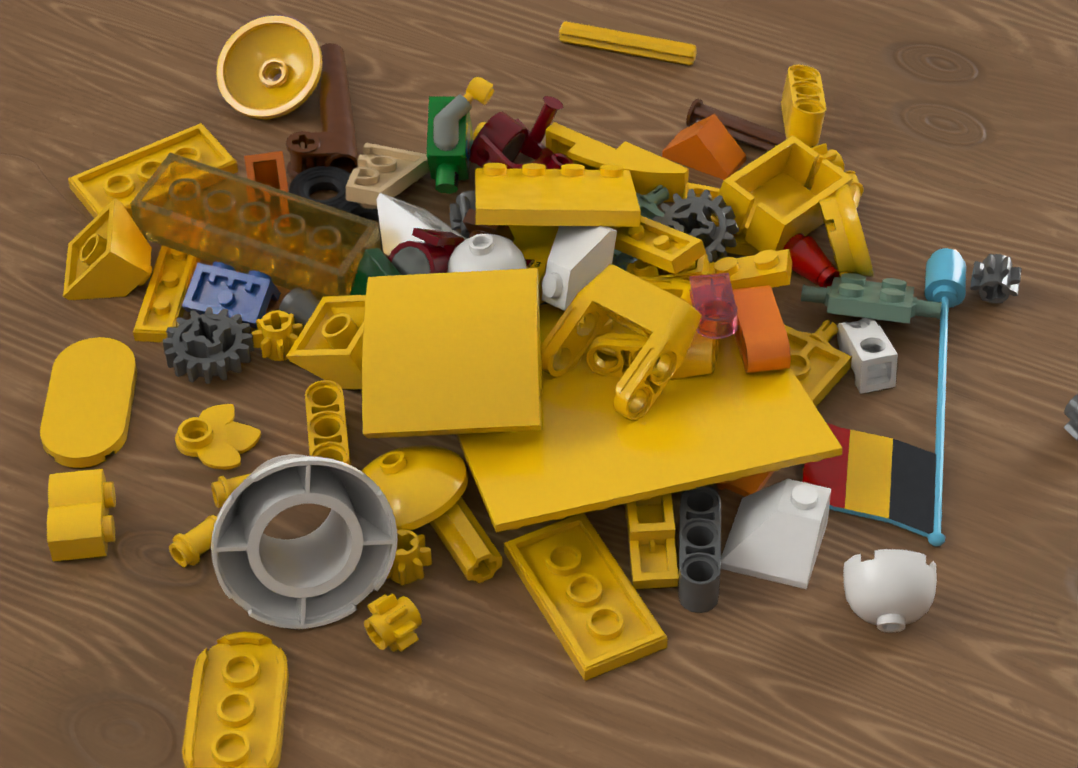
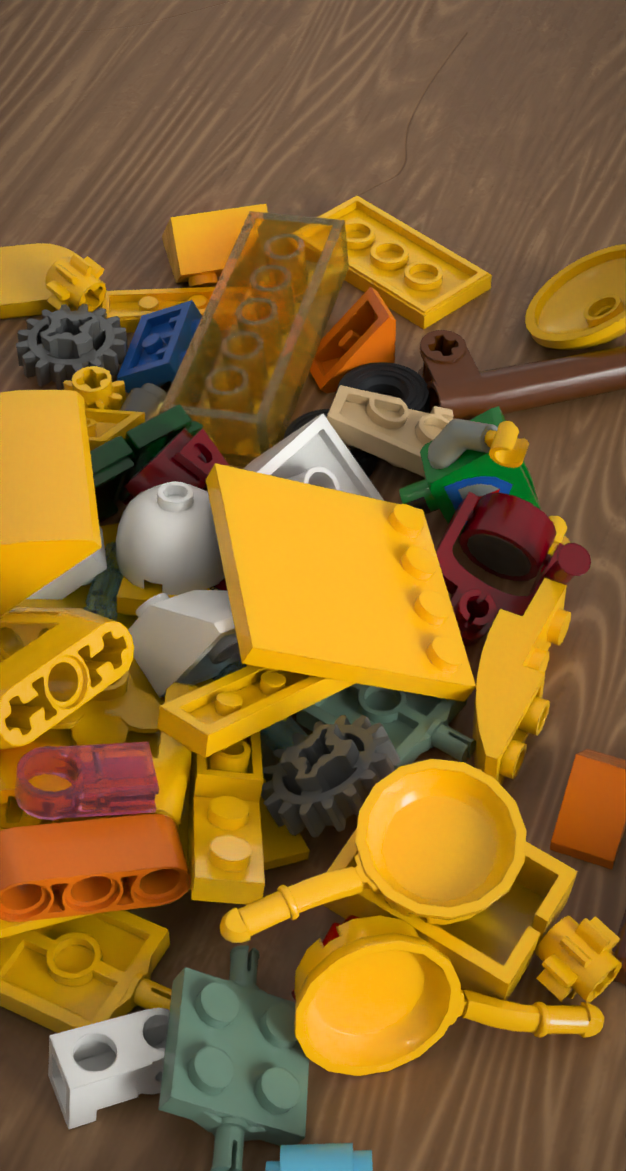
camera: 80 degrees right, 0 degrees up
(139, 333) = (75, 283): none -> yellow gear
(792, 173) = (427, 840): none -> yellow piece

